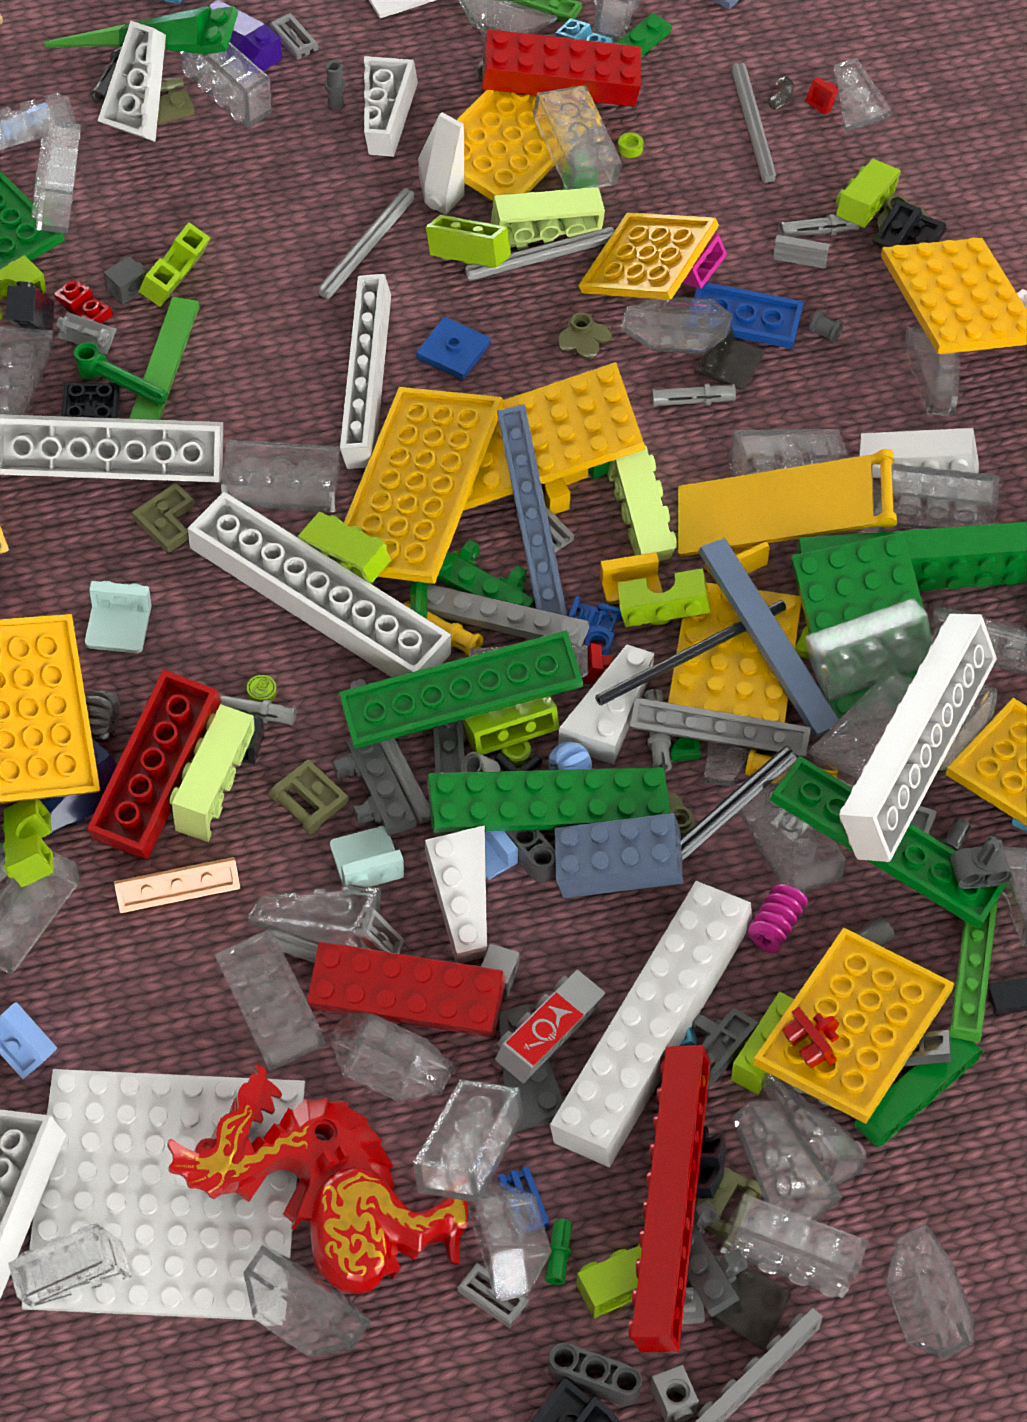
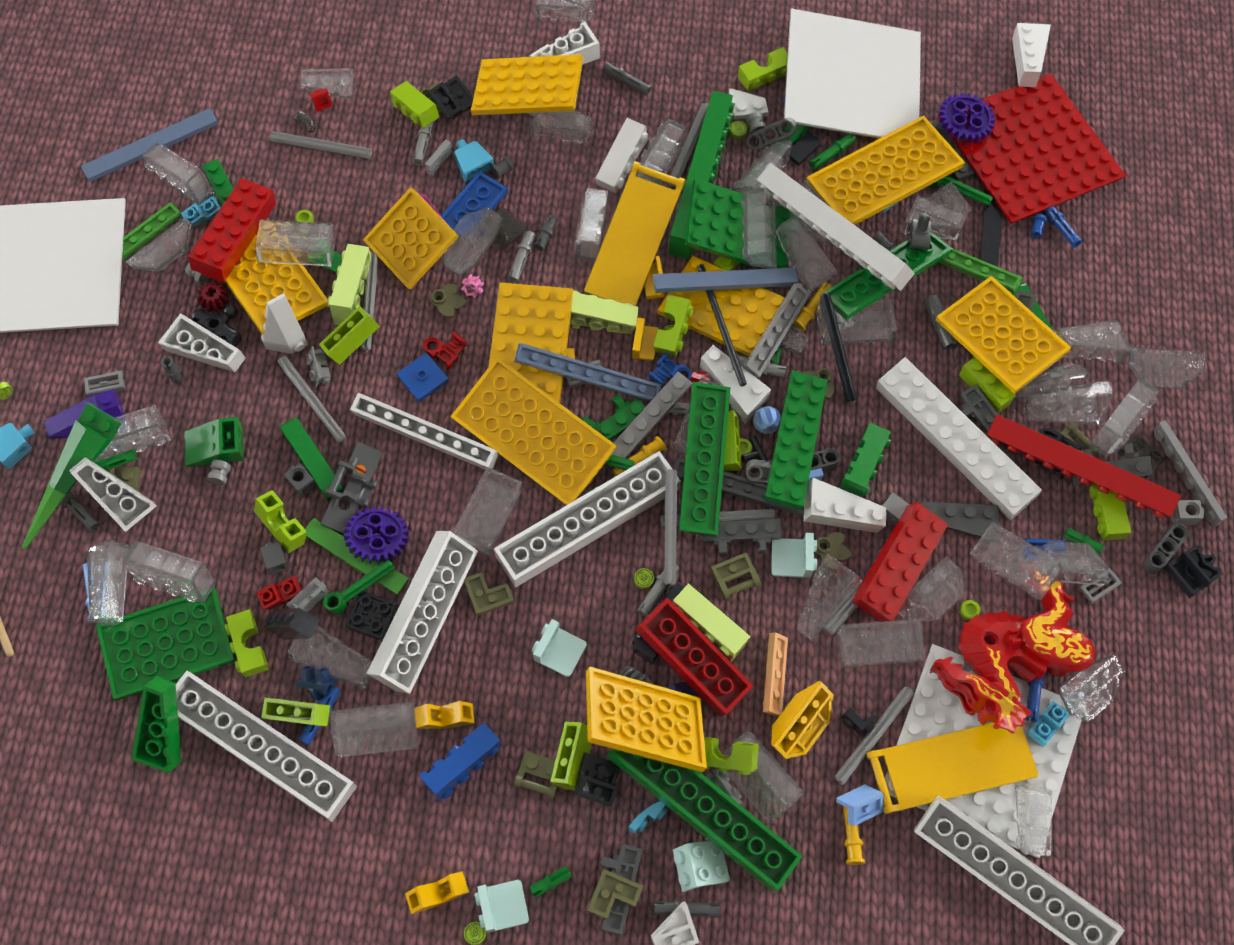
camera: 70 degrees left, 10 degrees up
(111, 935) = (802, 721): none -> yellow wedge
(122, 1153) = (953, 765): none -> yellow flag
(133, 1037) = (873, 735): none -> light grey axle
(140, 1006) = (856, 723): none -> black bracket
(173, 66) = (117, 460): none -> green pin
(218, 380) = (376, 535): none -> dark purple gear
(219, 185) = (218, 472): none -> light grey wheel
(223, 1260) = (1048, 723): none -> medium azure slope
(243, 268) = (305, 485): none -> dark grey brick
(256, 333) = (358, 489): none -> dark grey piece
(258, 168) = (214, 441): none -> green slope
(266, 1231) = (1033, 700): none -> blue pin
(280, 269) = (309, 455): none -> green beam
(339, 682) = (670, 527): none -> light grey axle
(347, 546) = (569, 488): lime brick -> none
(373, 938) = (862, 571): light grey tile -> none
(380, 1117) = (969, 609): none -> lime tile
(404, 912) = (833, 547): none -> olive plate
(405, 236) = (316, 360): none -> light grey hinge
(423, 111) = (210, 321): none -> black piece
(461, 90) = (213, 296): none -> dark red gear
(508, 360) = (447, 351): none -> red piece
(549, 1025) = (947, 493): brick -> none
(557, 906) = (865, 460): none -> green wedge
(616, 351) = (476, 282): none -> bright pink gear
(618, 855) = (846, 414): sand blue brick -> none
(747, 410) = (546, 232): none -> dark grey pin
(776, 917) = (905, 349): dark pink piece -> none
(818, 286) = (472, 159): none -> medium azure torso
(818, 1049) = (1025, 354): red hips -> none
(914, 1166) = (1096, 340): none -> clear wedge

